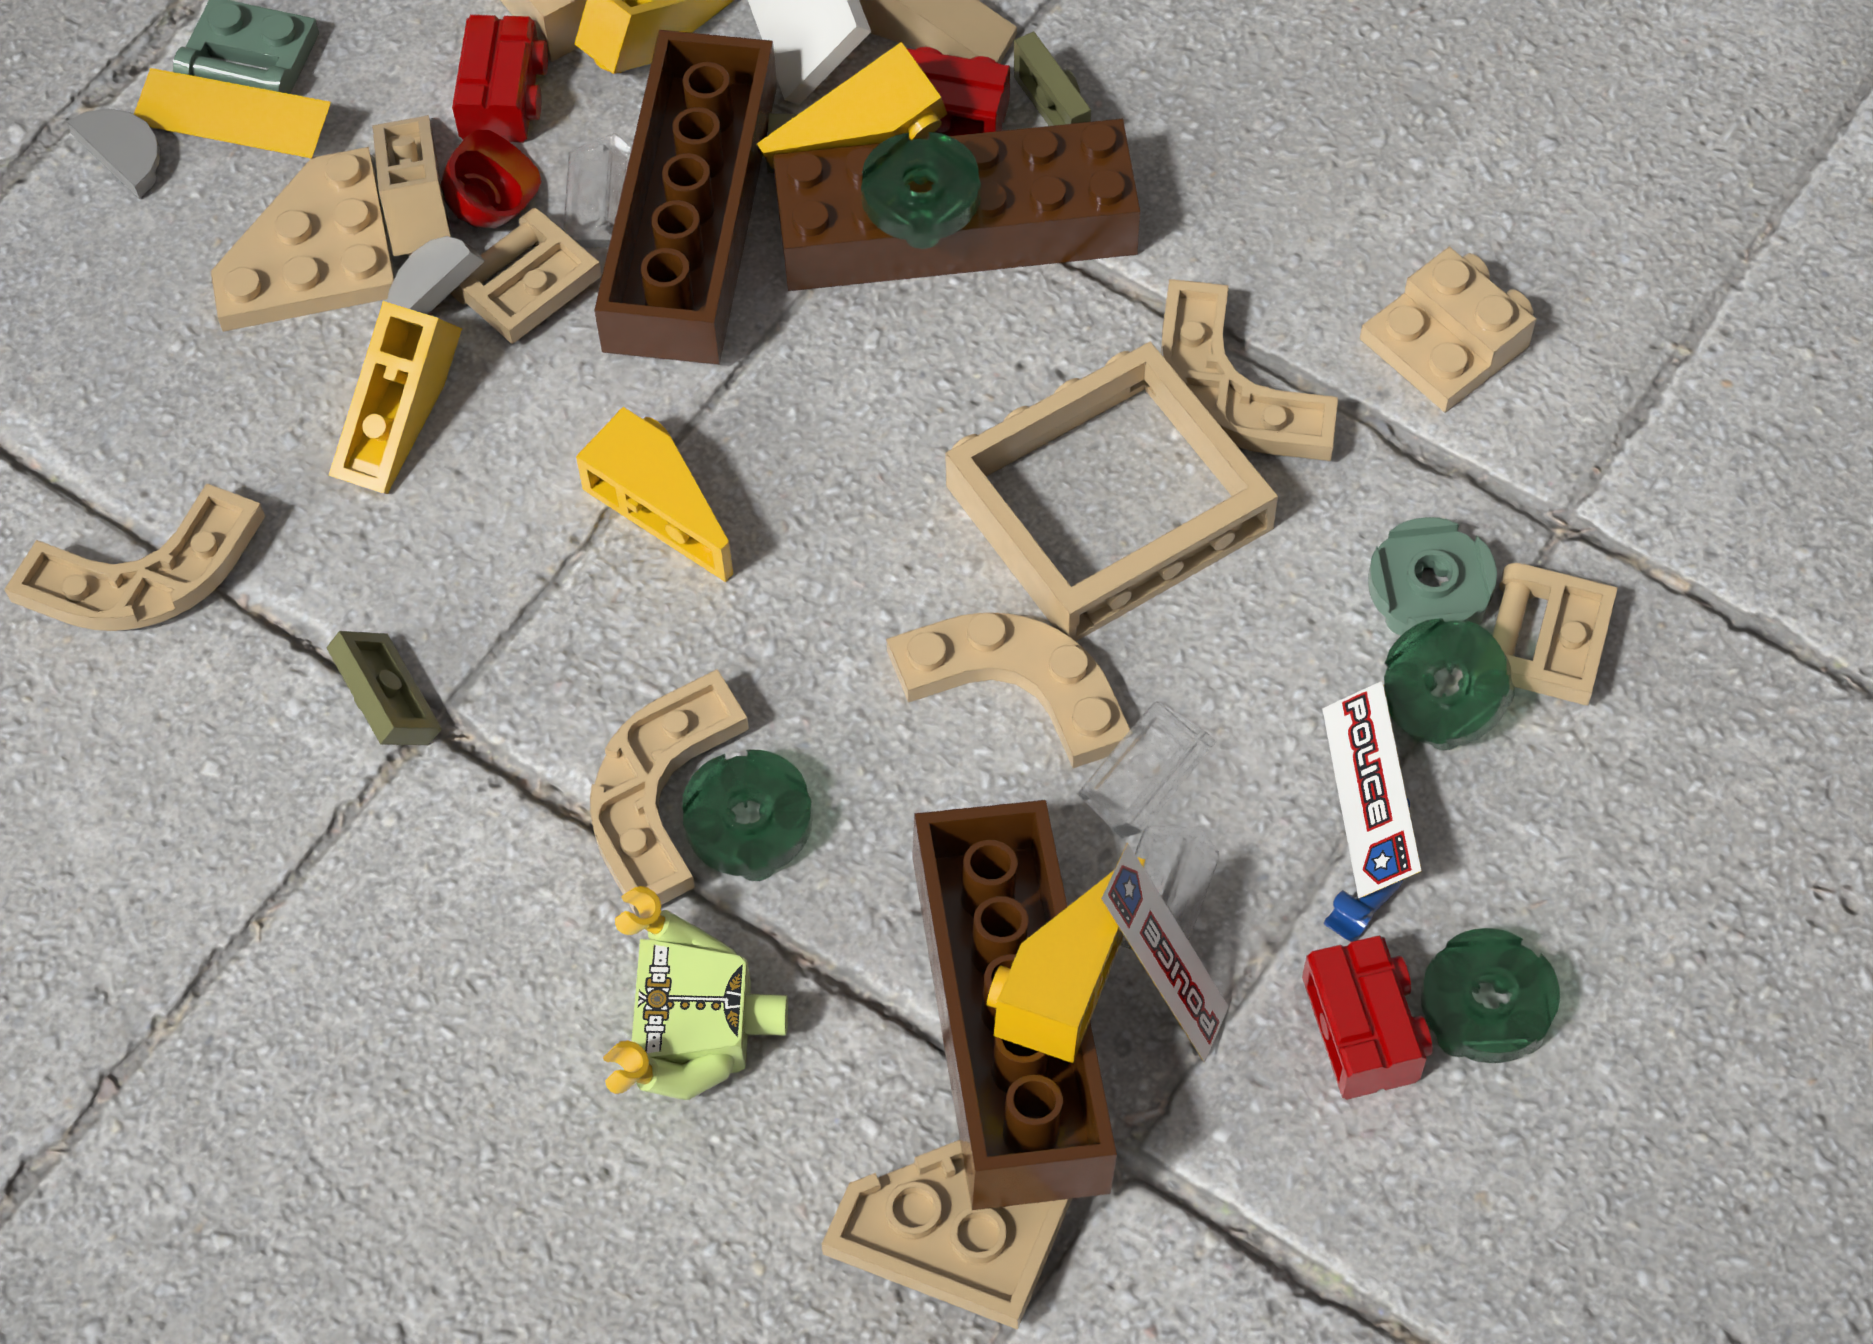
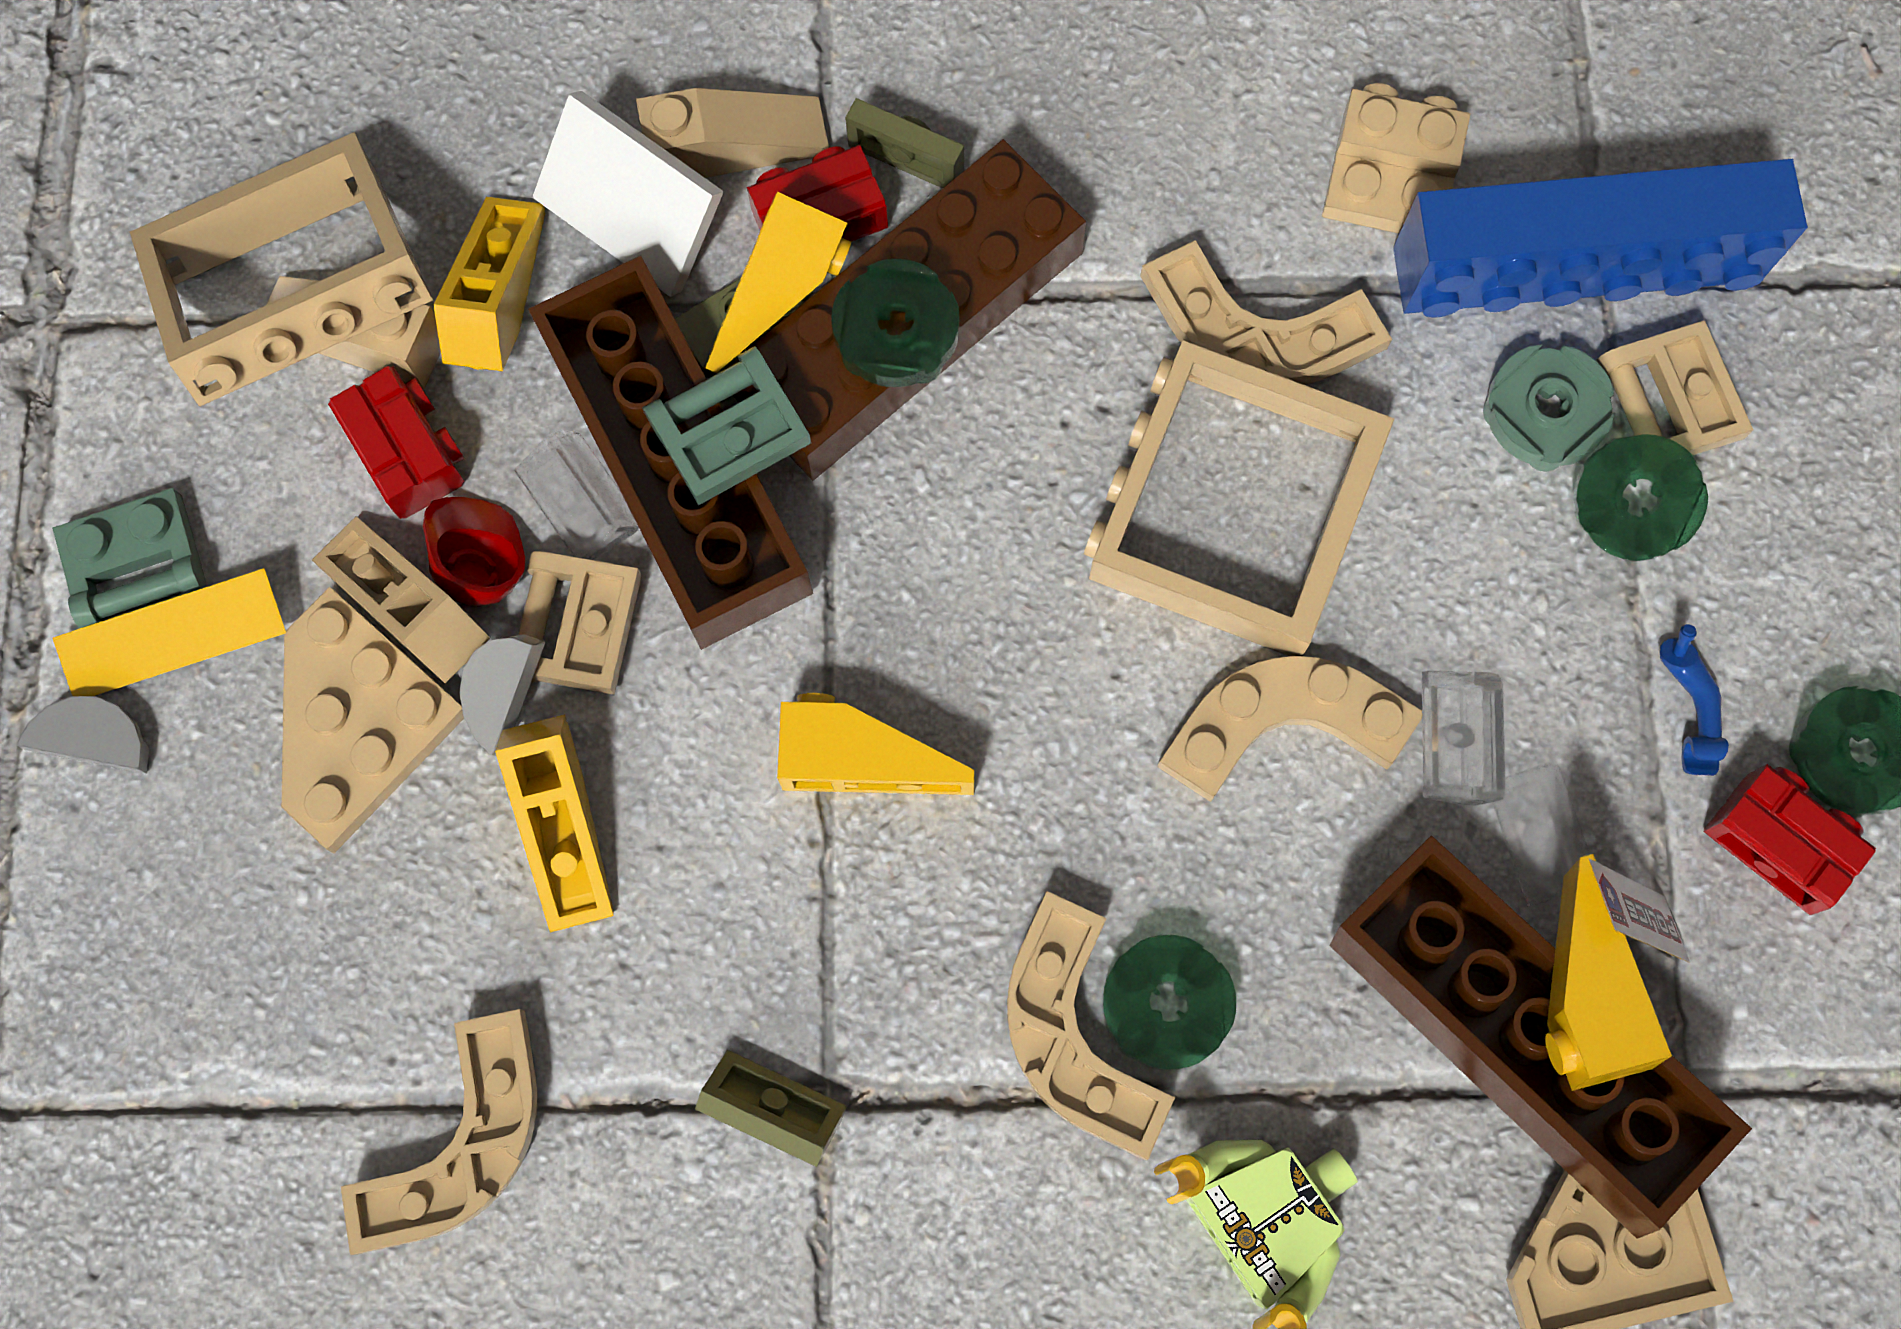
camera: 35 degrees left, 15 degrees up
(731, 195) = (738, 439): none -> sand green plate
(1371, 790) = (1651, 634): white sticker -> none
(1563, 463) = (1597, 237): none -> blue brick

